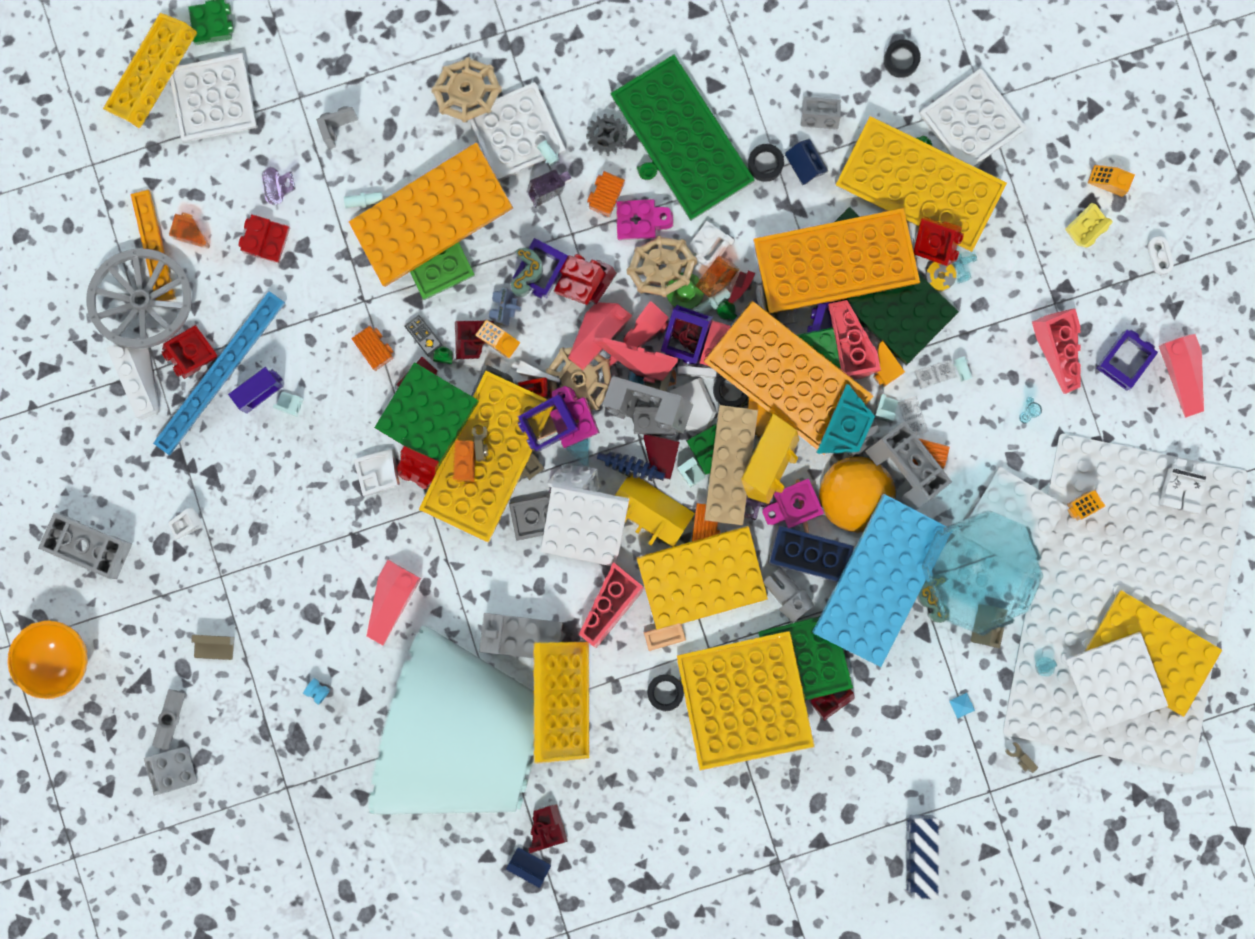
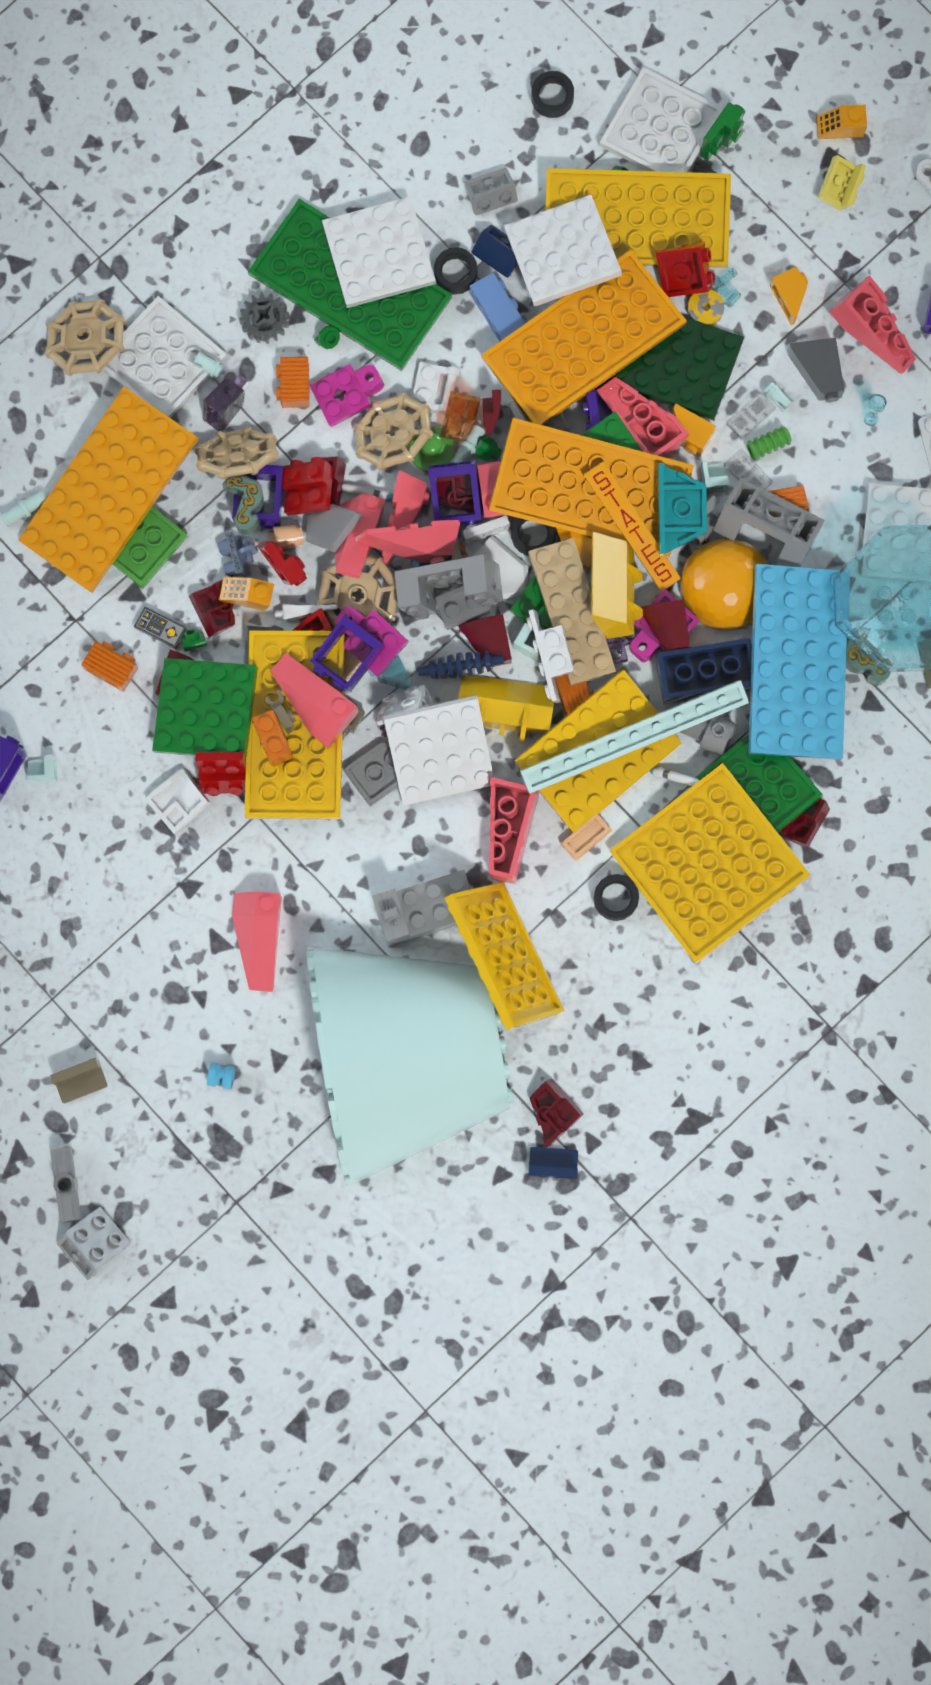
camera: 25 degrees left, 5 degrees down
(509, 450) = (315, 701): none -> coral wedge
(536, 333) = (286, 566): none -> red plate
(537, 230) = (236, 453): none -> tan plate
(546, 309) = (287, 536): none -> light nougat brick
(581, 319) = (330, 527): none -> light grey tile
(624, 303) = (358, 490): none -> white piece
(702, 490) = (553, 653): none -> white bracket
(714, 123) = (378, 252): none -> white plate
(733, 582) = (634, 736): none -> light aqua plate
(750, 622) = (673, 776): none -> white piece
(784, 205) = (497, 306): none -> medium blue brick
(798, 507) = (668, 623): none -> dark red slope
(805, 420) = (631, 526): none -> light orange tile
(852, 185) = (562, 250): none -> white plate
(939, 401) = (770, 442): none -> bright green piece
(1004, 361) = (819, 367): none -> dark grey slope
(1009, 291) = (789, 291): none -> light orange slope
(1018, 146) = (723, 131): none -> green plate

